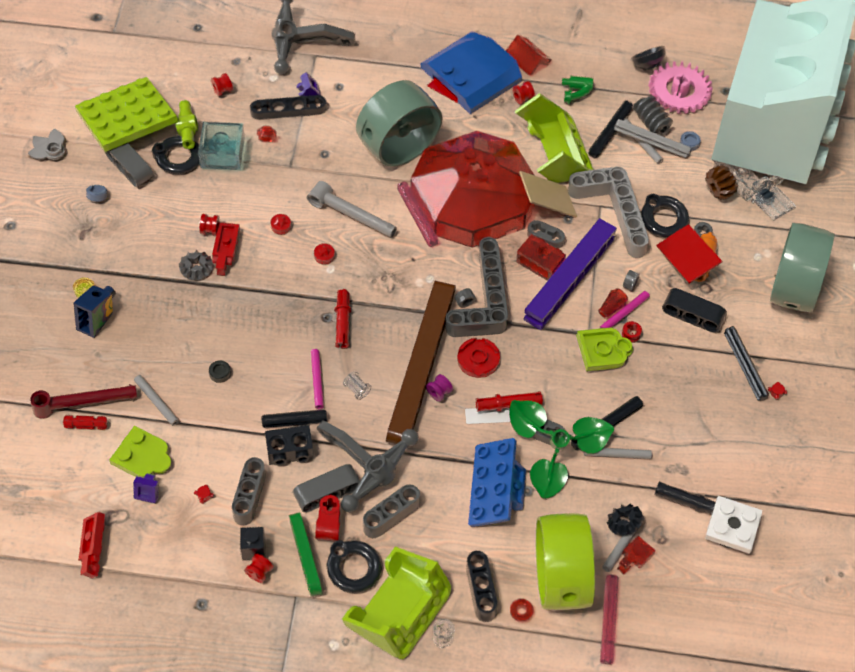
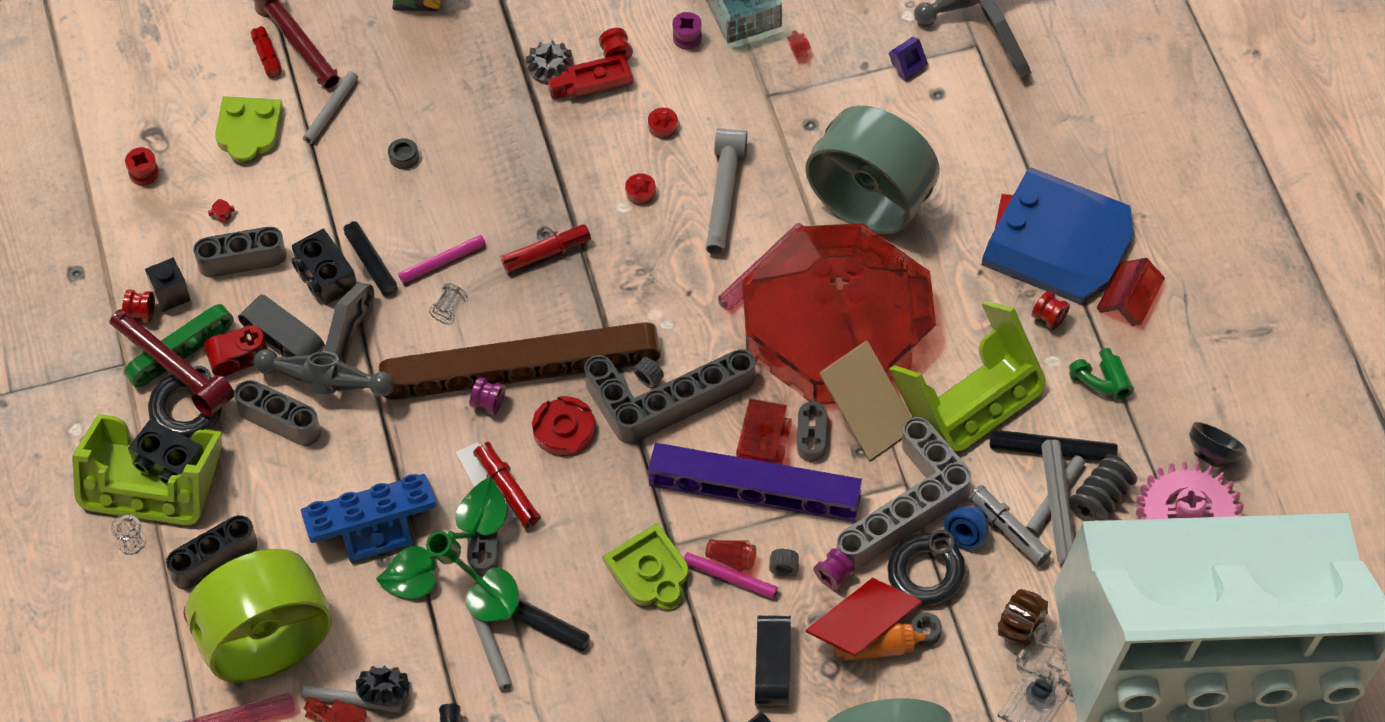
camera: 70 degrees right, 0 degrees up
(91, 543) = (99, 130): red hinge -> none
(136, 534) = (147, 170): none -> red wheel
(146, 488) = (200, 148): dark purple tile -> none
(218, 189) = (687, 30): none -> magenta wheel
(288, 110) = (858, 52): black beam -> none
(361, 541) = (208, 394): none -> dark red piece
(391, 583) = (170, 447): none -> black brick
(632, 326) = (693, 587): red bush -> none
(647, 257) = (834, 569): none -> magenta wheel
(648, 184) = (968, 527): none -> blue brick
(675, 163) = (999, 515): none -> light grey pin

